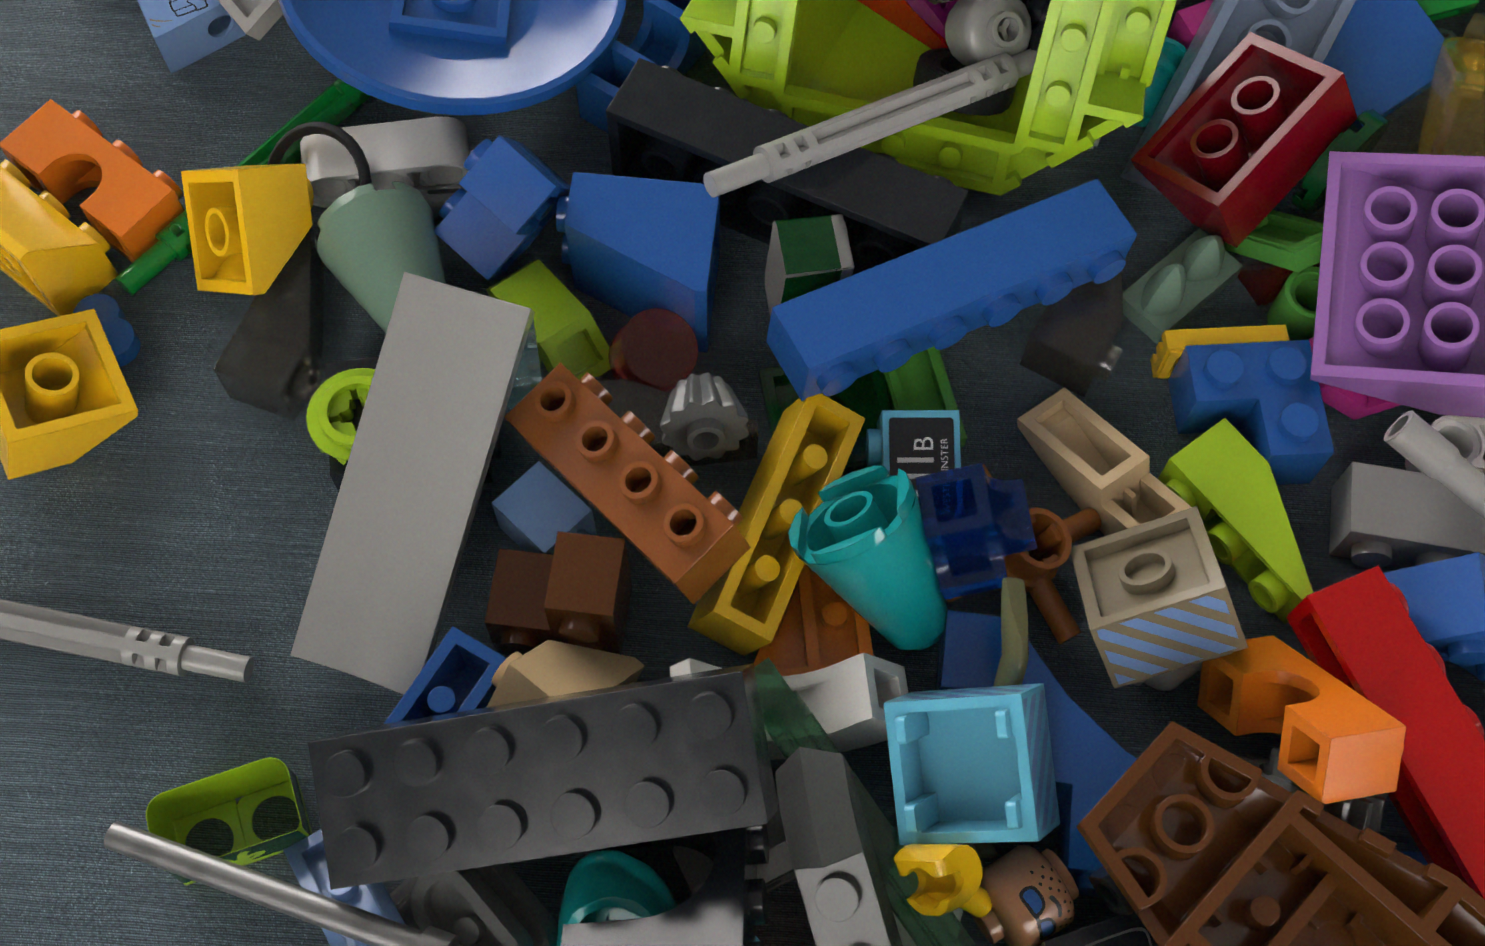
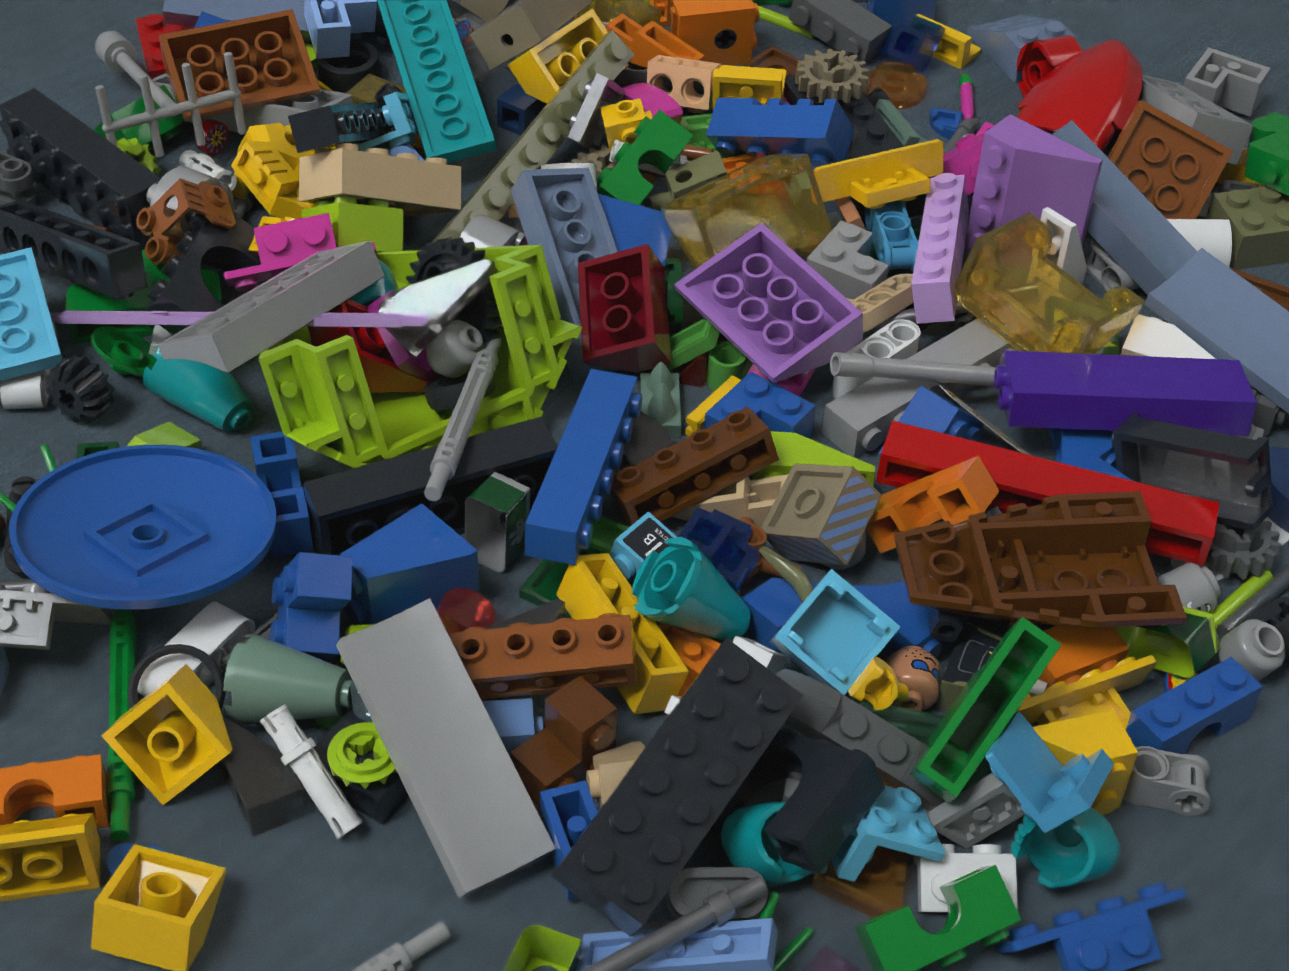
camera: 50 degrees left, 20 degrees down
(306, 371) = (309, 768): none -> white pin
(703, 418) = (540, 602): dark grey piece -> none
(1085, 403) = (694, 468): none -> reddish brown brick

